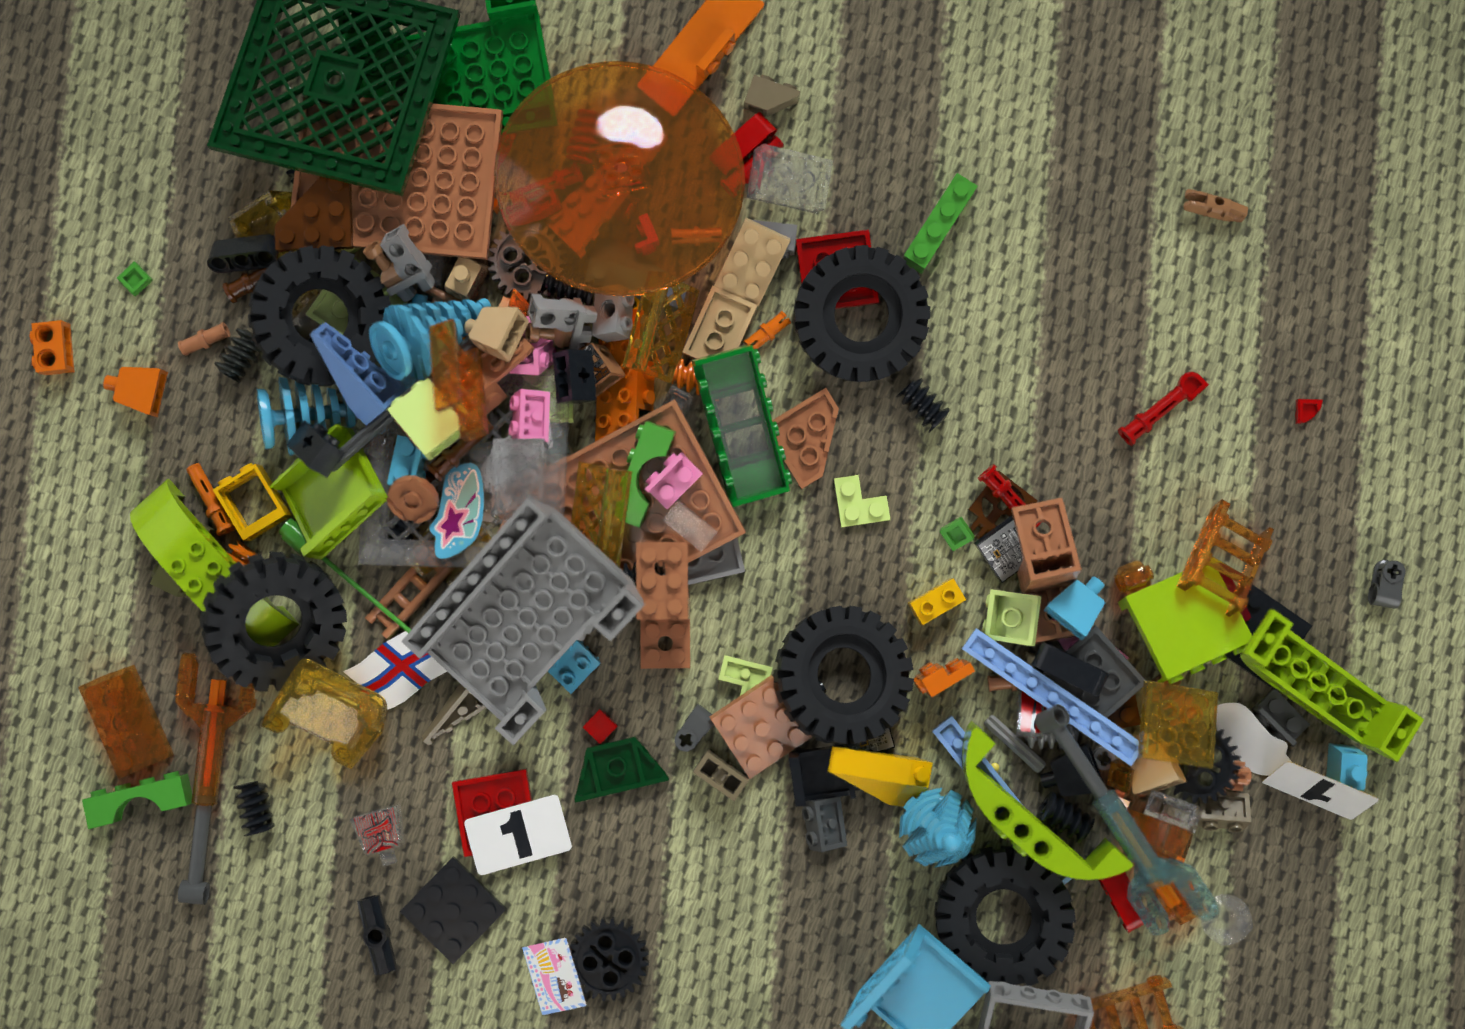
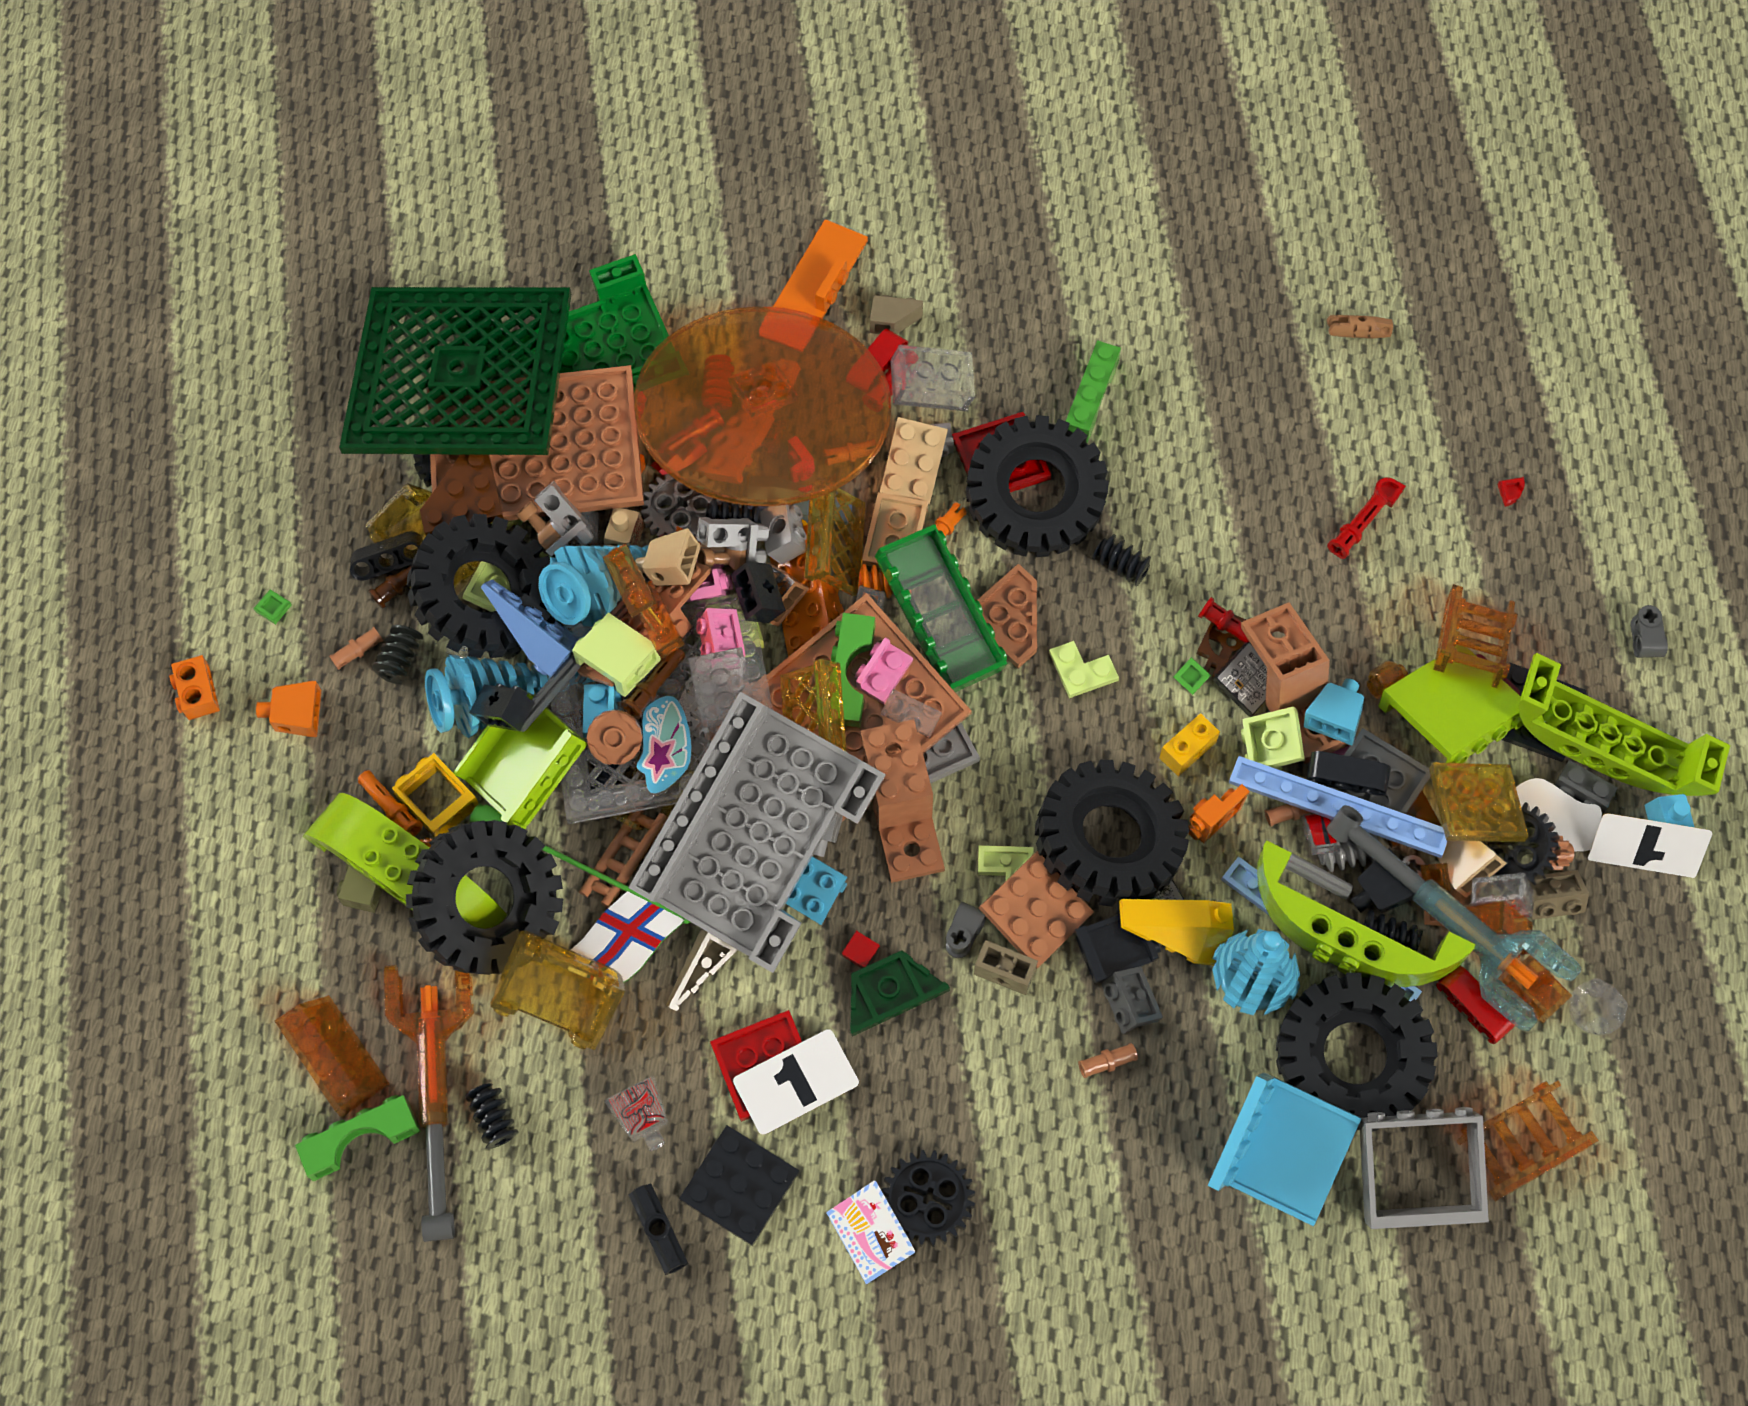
camera: 15 degrees left, 20 degrees down
(790, 873) = (1108, 1060): none -> nougat pin

